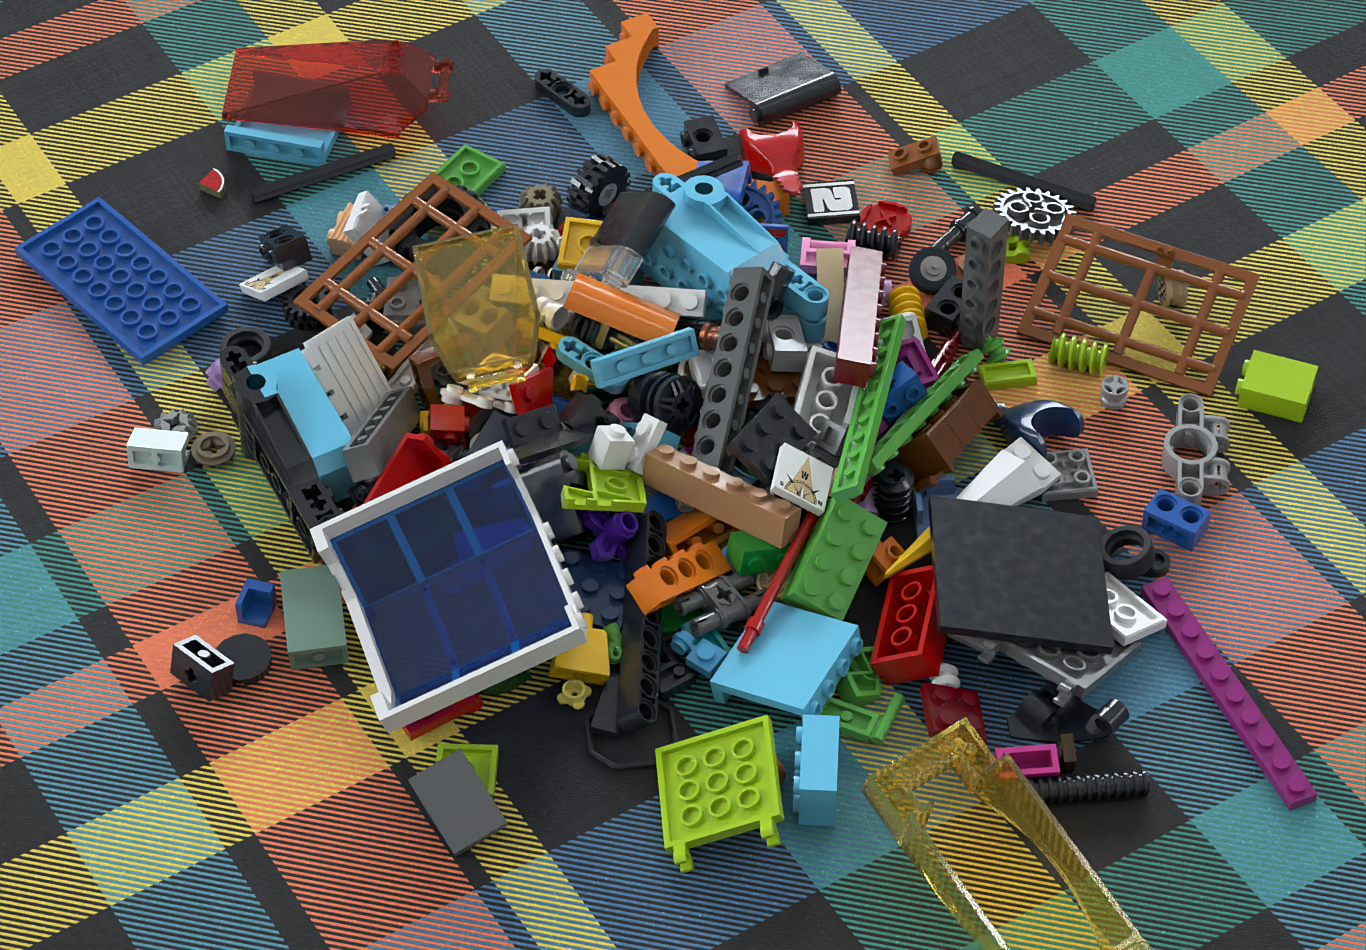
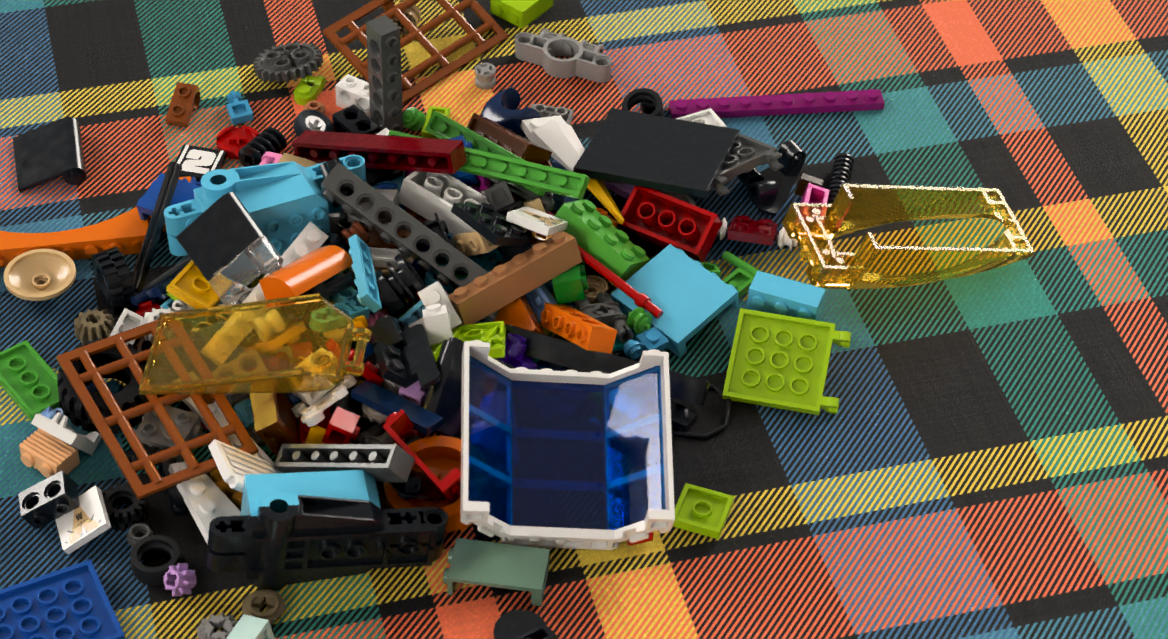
camera: 75 degrees left, 5 degrees down
(256, 603) = (461, 611): blue panel -> none
(276, 330) = (138, 532): none -> dark grey plate
(457, 802) = (736, 517): dark grey tile -> none
(586, 134) = (39, 274): none -> tan dish
(703, 139) = (87, 210): black brick -> none
(724, 633) = (639, 320): none -> bright green wheel
(776, 155) = (133, 174): red animal -> none
(932, 204) = (238, 110): none -> dark azure plate
(957, 229) = (277, 105): black pin -> none
(1011, 291) = (351, 92): none -> white brick
(1022, 180) = (241, 61): black axle -> none
(1078, 354) = (443, 79): lime piece -> none
(1175, 519) = (620, 80): blue brick -> none

